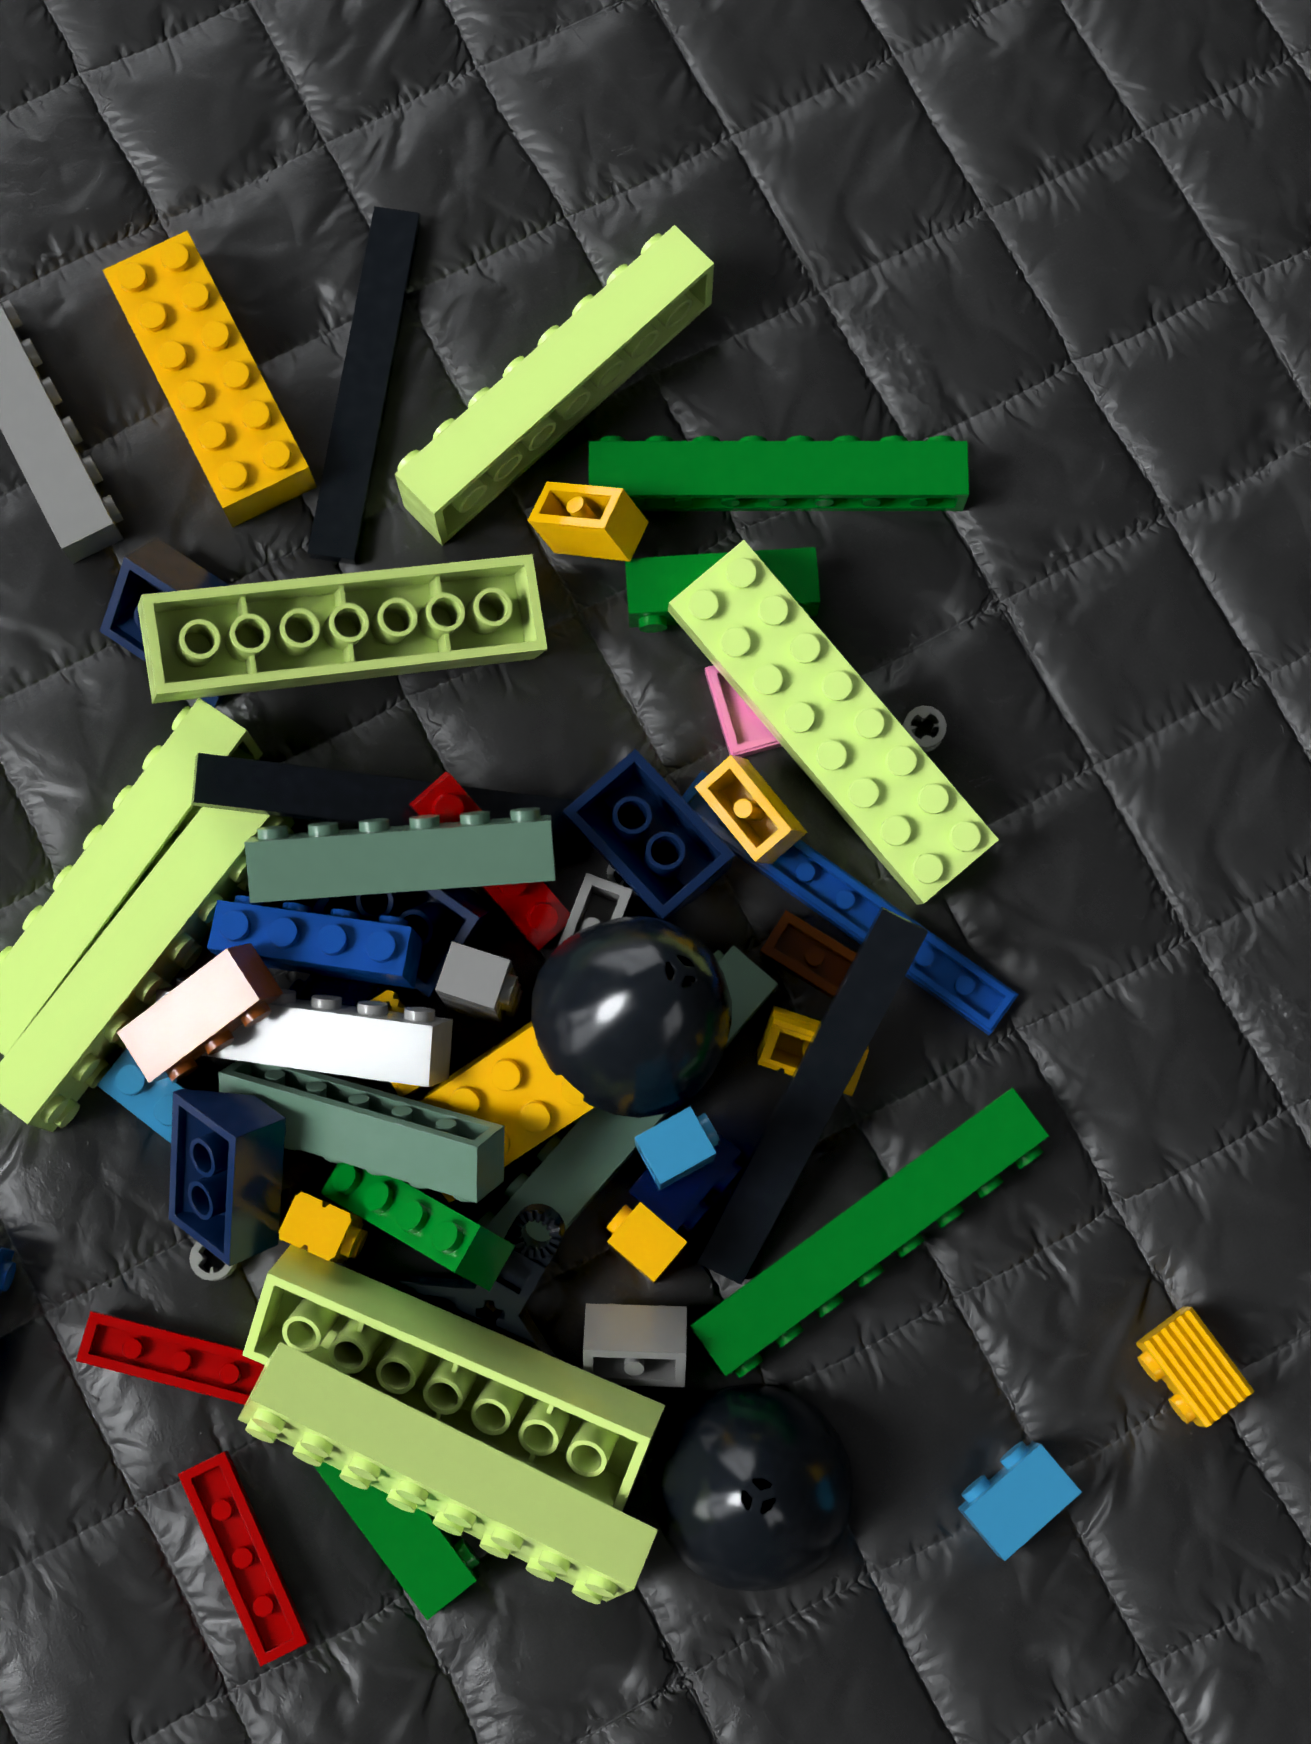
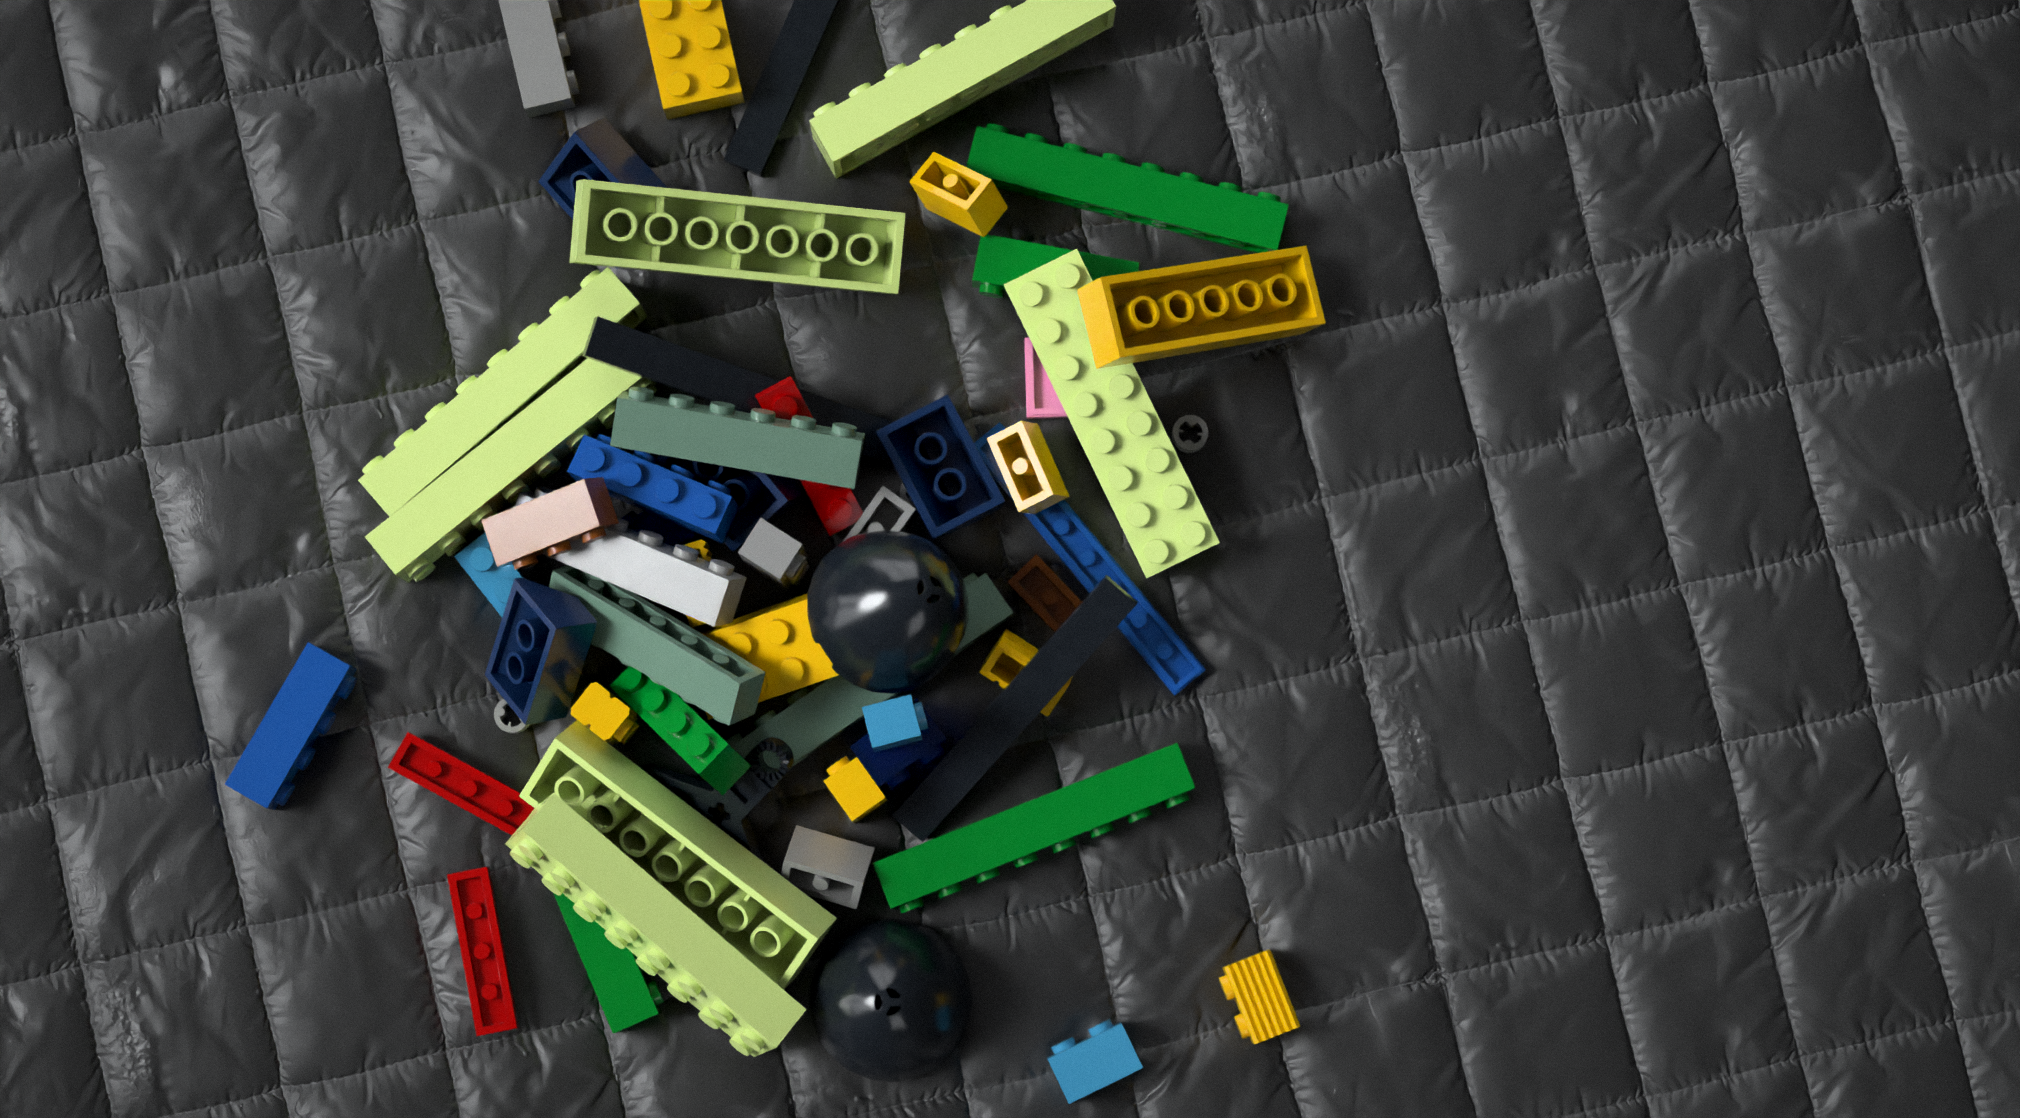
camera: 10 degrees right, 5 degrees up
(901, 572) = (1200, 306): none -> yellow brick

